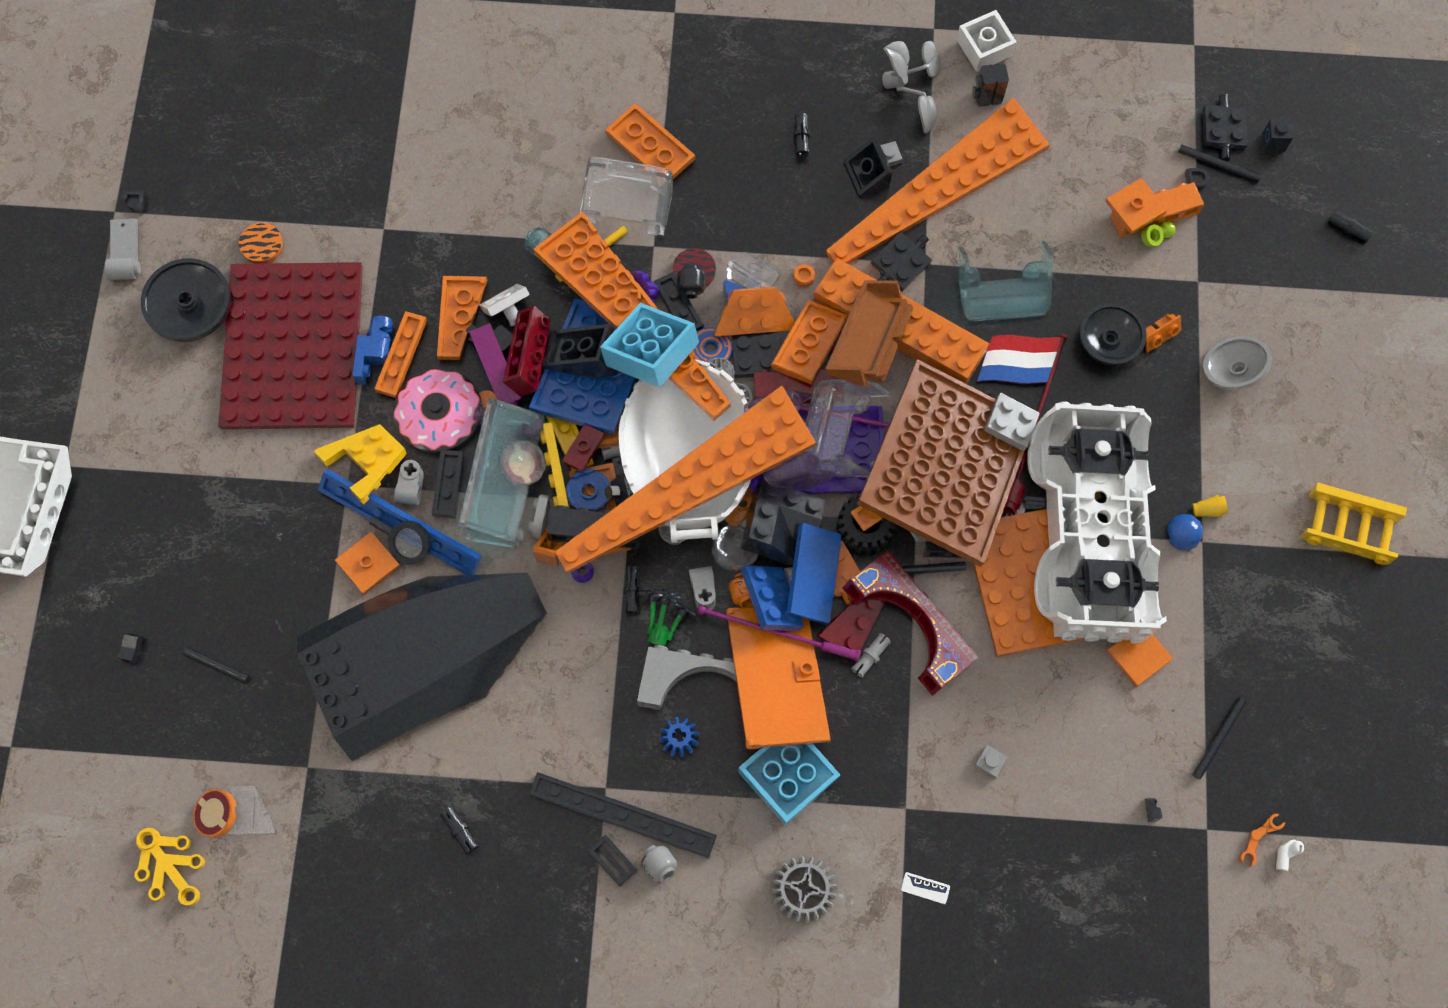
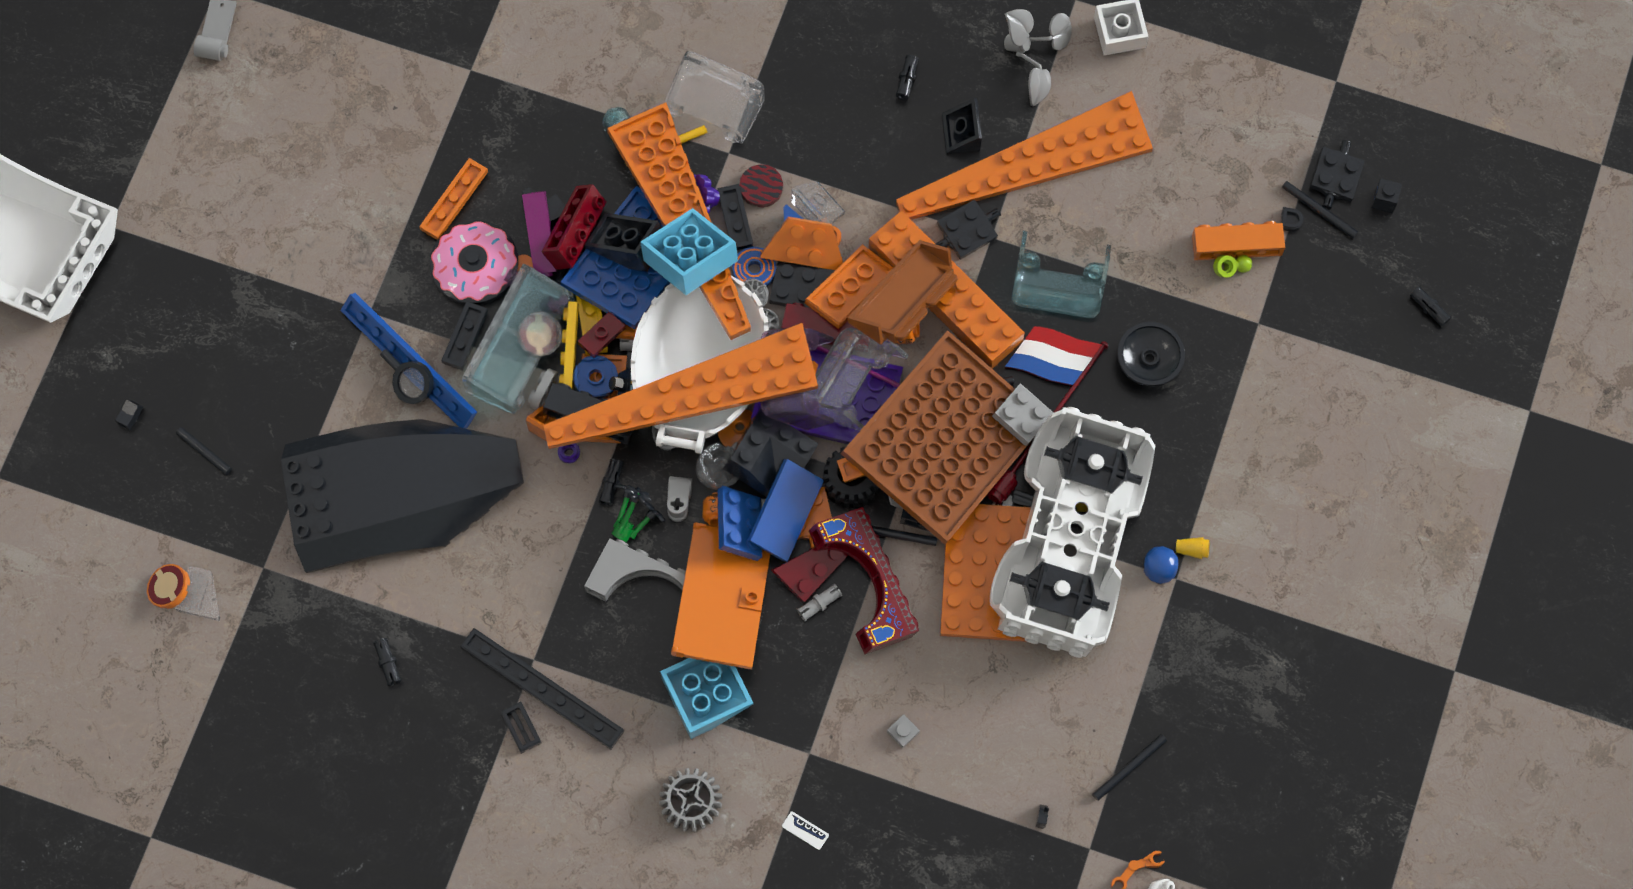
camera: 15 degrees right, 0 degrees up
(166, 864) = (111, 621): yellow plant -> none
(186, 300) = (263, 94): black dish -> none
(261, 243) = (348, 55): orange tile -> none
(291, 346) = (352, 163): dark red plate -> none
(367, 563) = (368, 391): orange plate -> none
(372, 348) = (428, 186): blue plate -> none
(372, 451) = (401, 286): yellow wing -> none
(409, 487) = (426, 329): light grey piece -> none
(458, 310) = (520, 169): orange wing -> none
(505, 302) = (567, 172): white tile -> none
(649, 141) = (754, 47): orange plate -> none
(659, 863) = (562, 740): light grey head -> none
(673, 742) = (616, 621): blue gear -> none
(691, 281) = (752, 198): black head -> none
(804, 275) = (867, 219): orange tile -> none
(825, 646) = (779, 583): magenta piece -> none
(892, 153) = (989, 118): light grey plate -> none
(991, 84) = (1109, 73): black brick -> none
(1136, 205) = (1214, 232): orange plate -> none
(1140, 659) = (1077, 674): orange tile -> none
(1167, 327) = (1210, 362): orange hinge -> none
(1237, 362) = (1265, 413): light grey dish -> none
(1368, 508) = (1329, 576): yellow fence -> none

